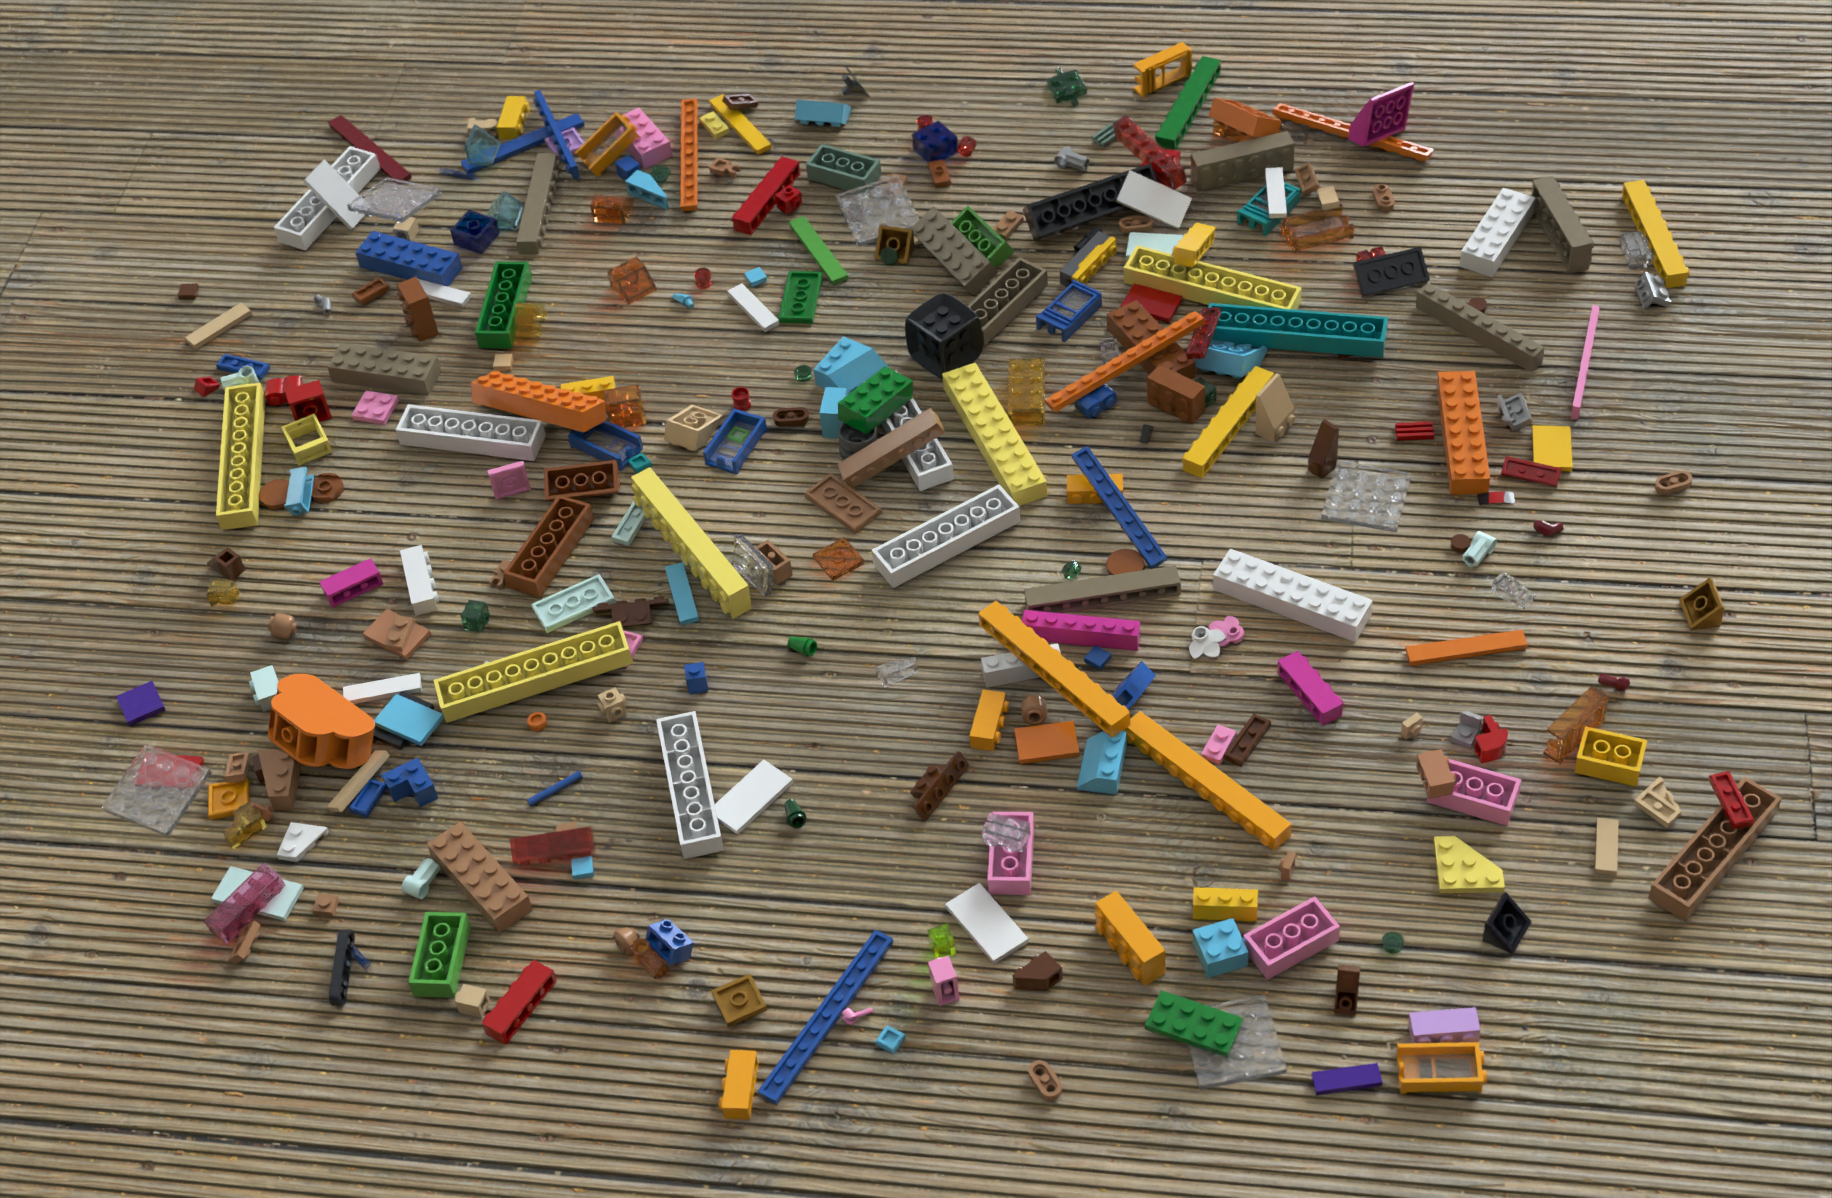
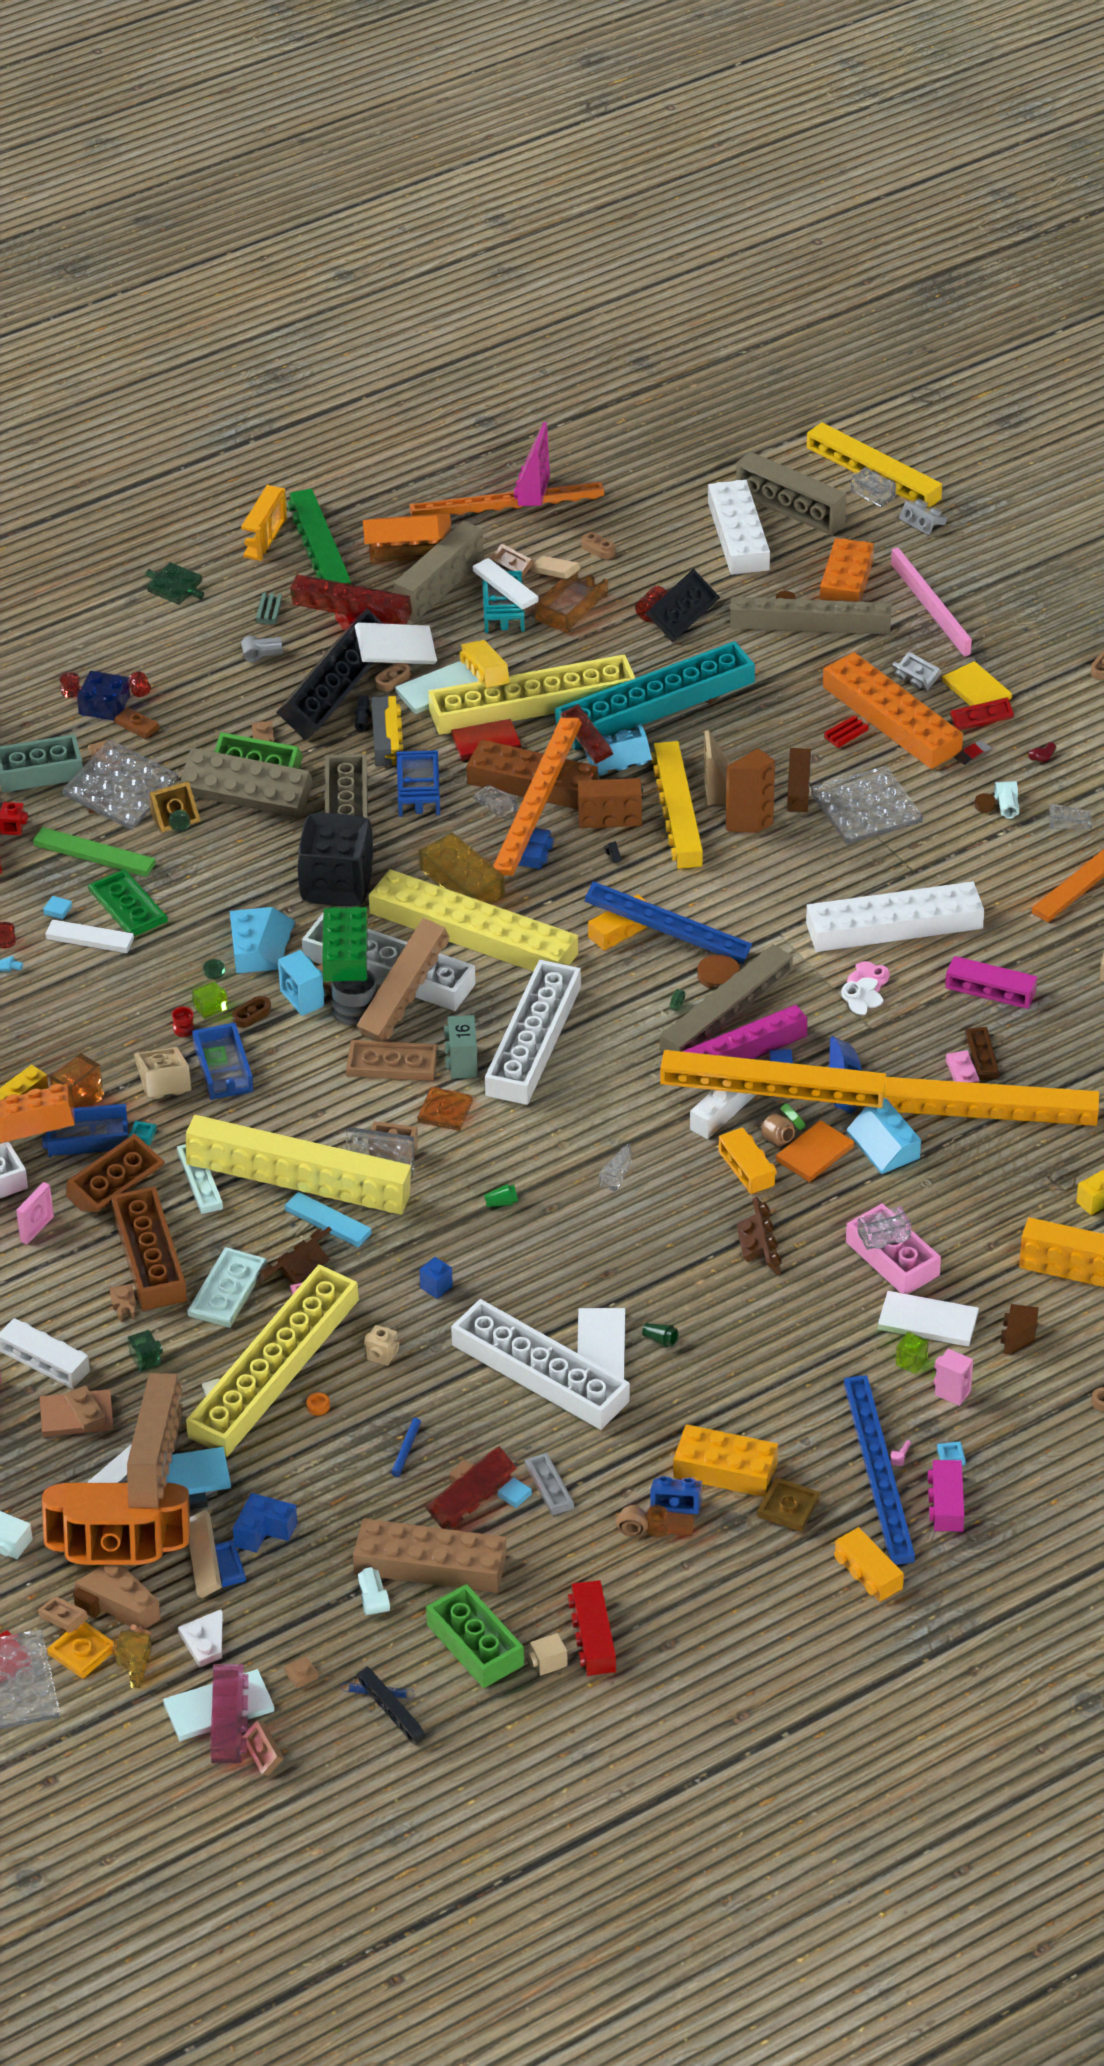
camera: 45 degrees left, 5 degrees down
(384, 681) = (154, 1440): none -> medium nougat brick
(610, 876) = (549, 1484): none -> light grey tile
(731, 937) = (725, 1460): none -> light orange brick
(773, 393) = (209, 999): none -> clear neon green brick
(848, 1069) = (946, 1495): none -> dark pink brick
(886, 518) = (461, 1046): none -> sand green brick
(1054, 706) = (793, 1116): none -> bright green tile
(1269, 439) = (750, 793): none -> dark orange slope
(1541, 307) = (847, 571): none -> orange brick

